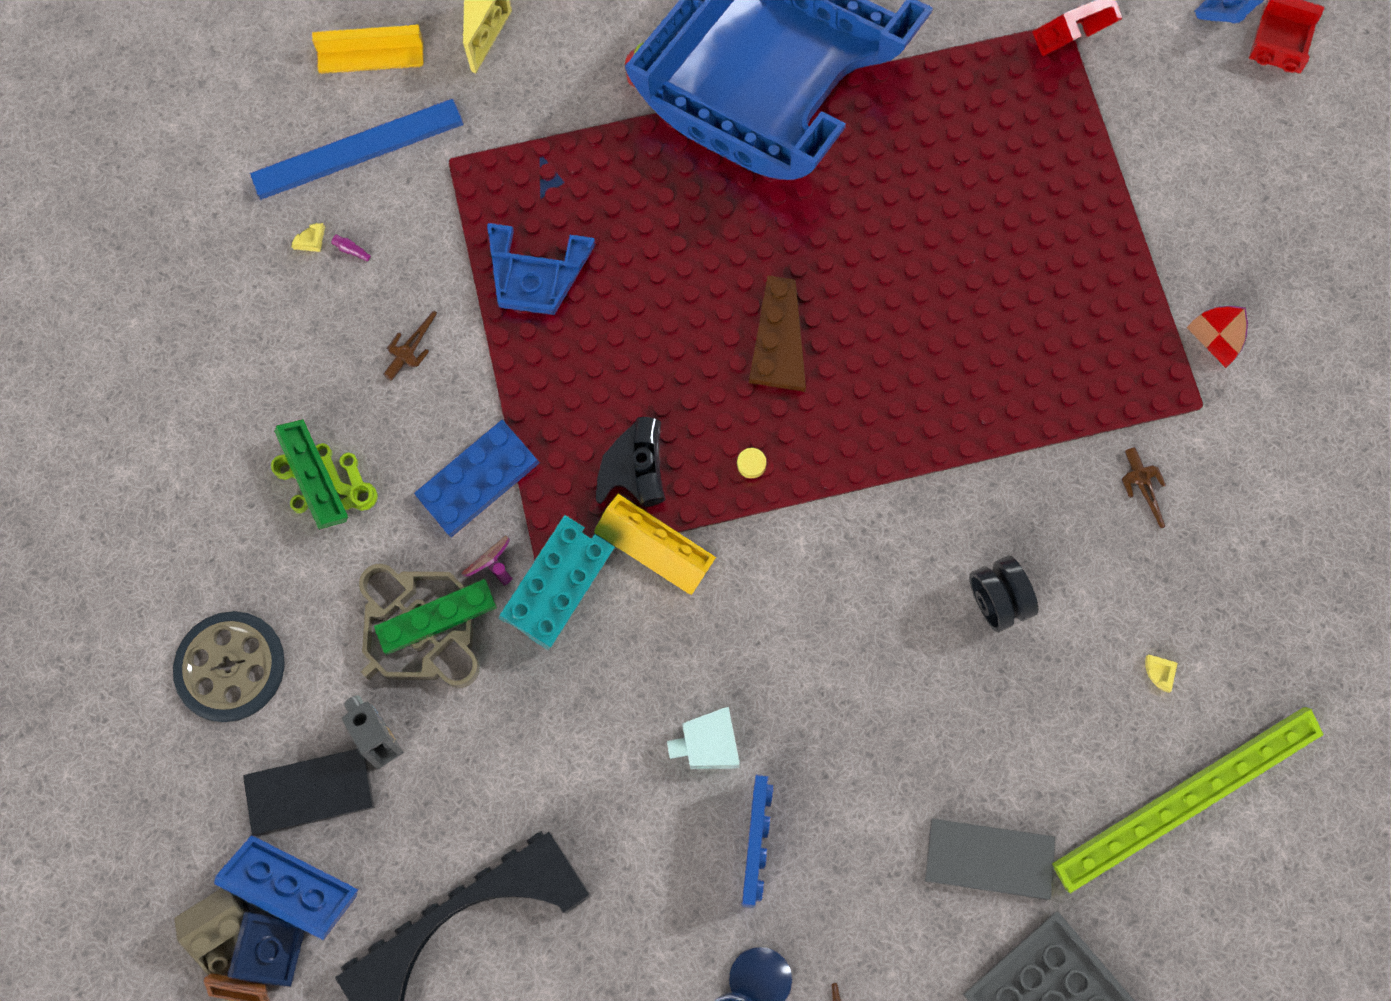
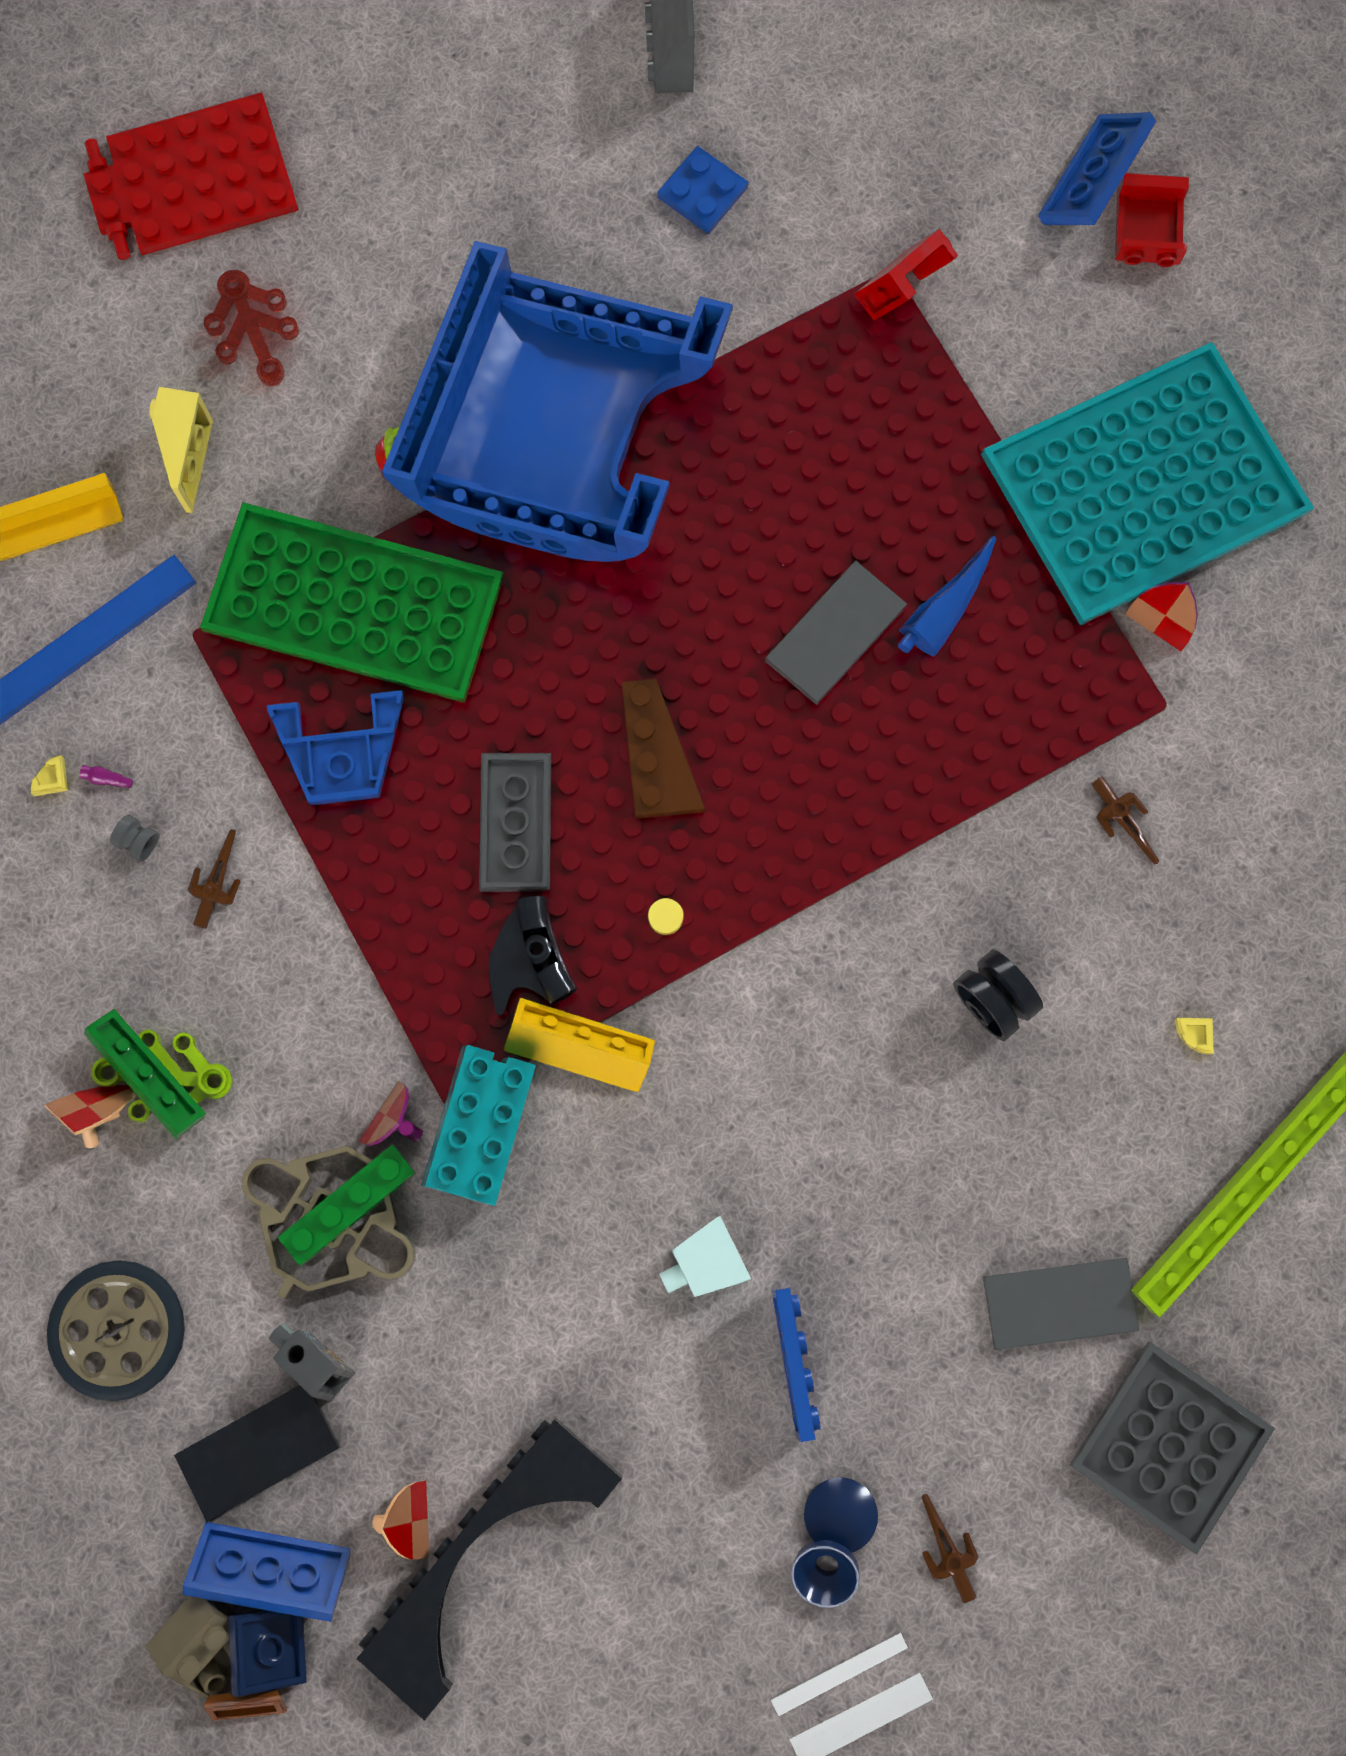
camera: 20 degrees left, 5 degrees up
(262, 492) = (89, 1109): none -> shield
(360, 299) = (134, 837): none -> dark grey wheel
(407, 880) = (406, 1522): none -> shield
(476, 478) = (344, 1022): blue plate -> none
(577, 165) = (352, 602): none -> green plate
(653, 361) = (515, 822): none -> dark grey tile
(948, 281) = (836, 632): none -> dark grey tile
(1034, 289) = (938, 616): none -> blue piece
(1231, 229) = (1146, 482): none -> teal plate

